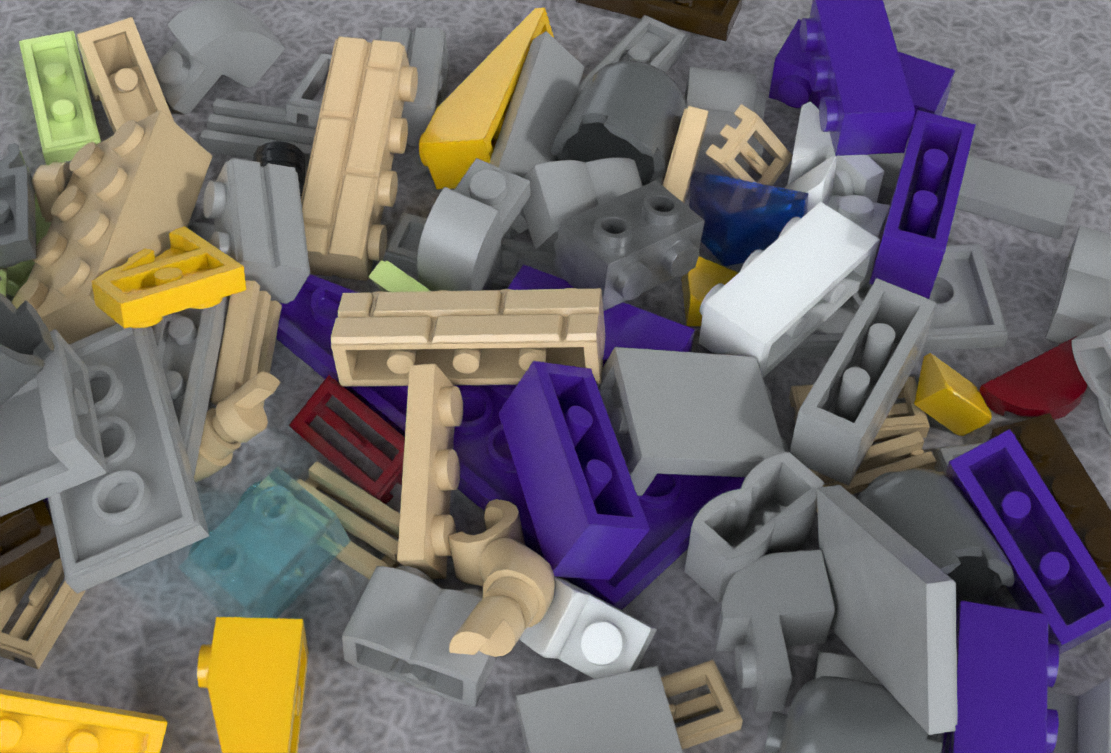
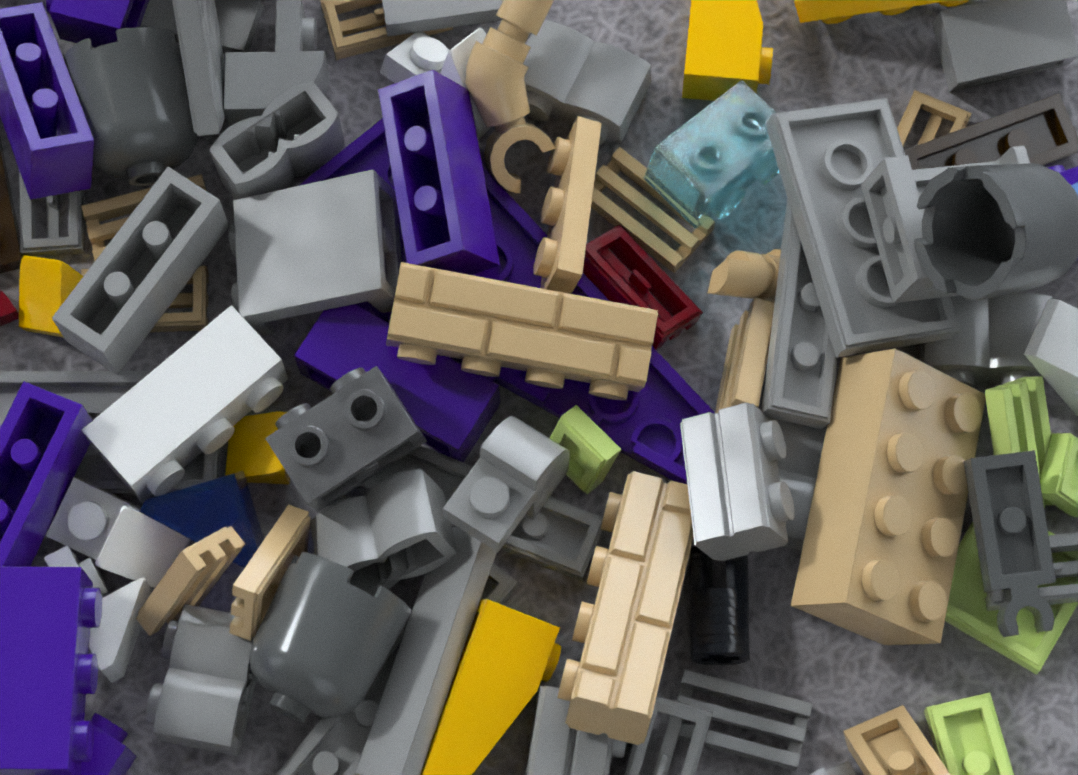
camera: 170 degrees left, 20 degrees up
(48, 184) = (964, 593): tan tile -> none
(181, 278) = (819, 371): yellow wing -> none

